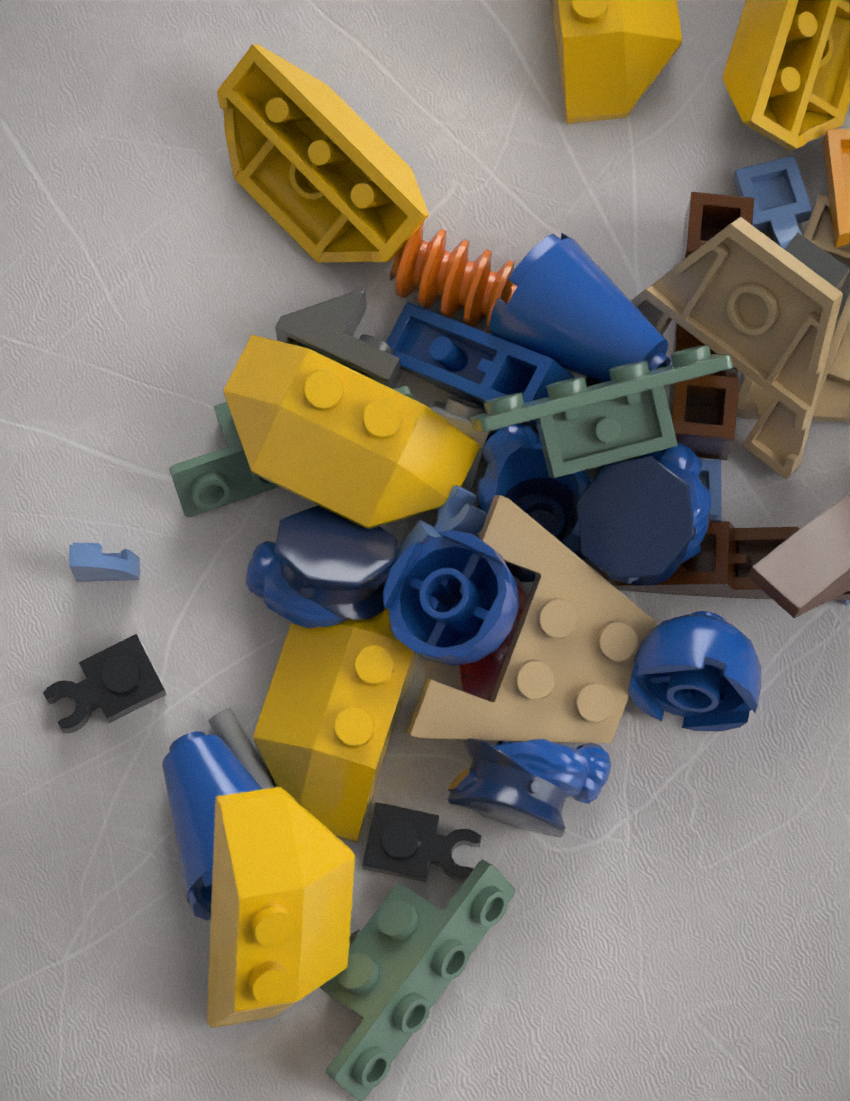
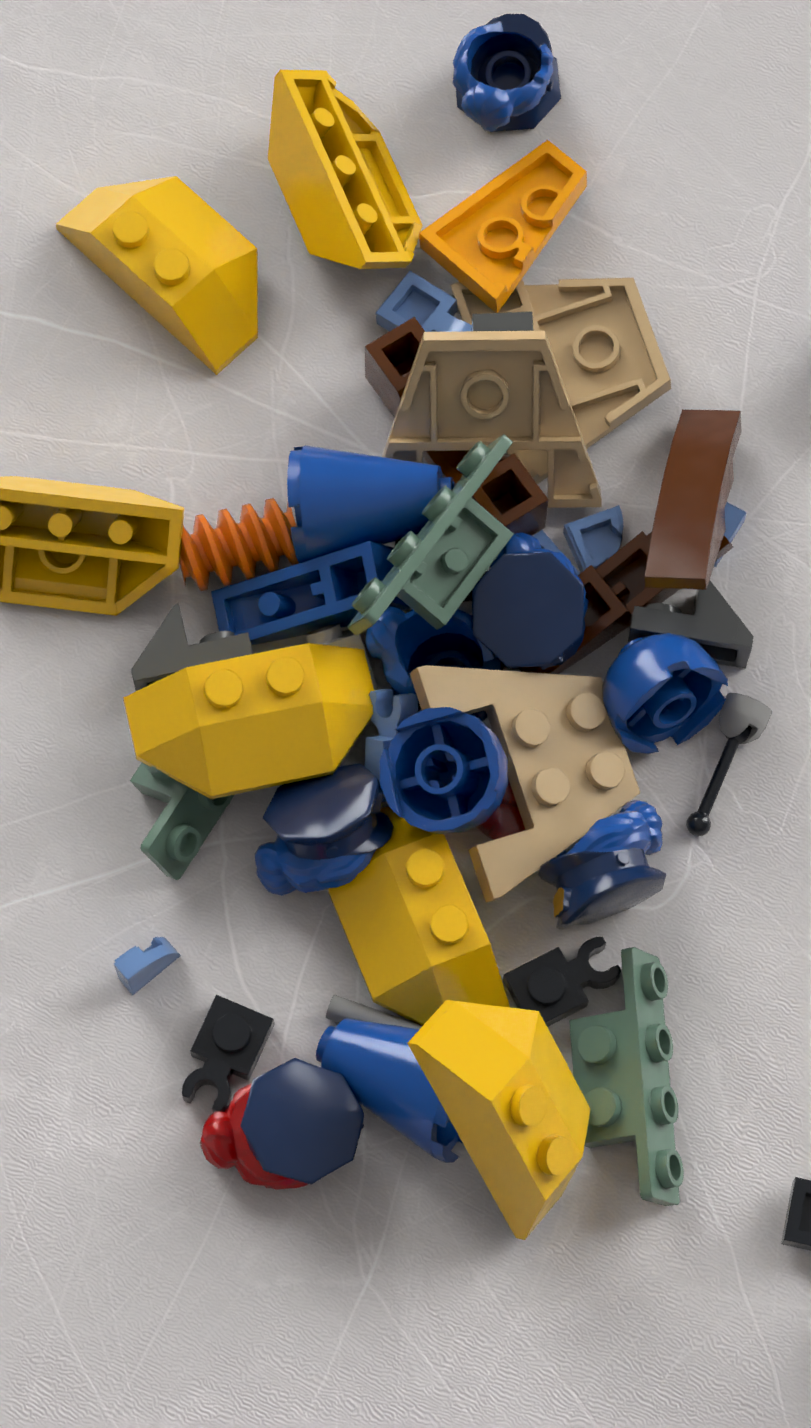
camera: 40 degrees left, 5 degrees down
(97, 785) = (286, 1127): none -> dark blue piece
(747, 752) = (741, 722): none -> hinge
(762, 502) = (595, 537): none -> medium blue tile
(785, 655) = (711, 626): none -> dark grey slope

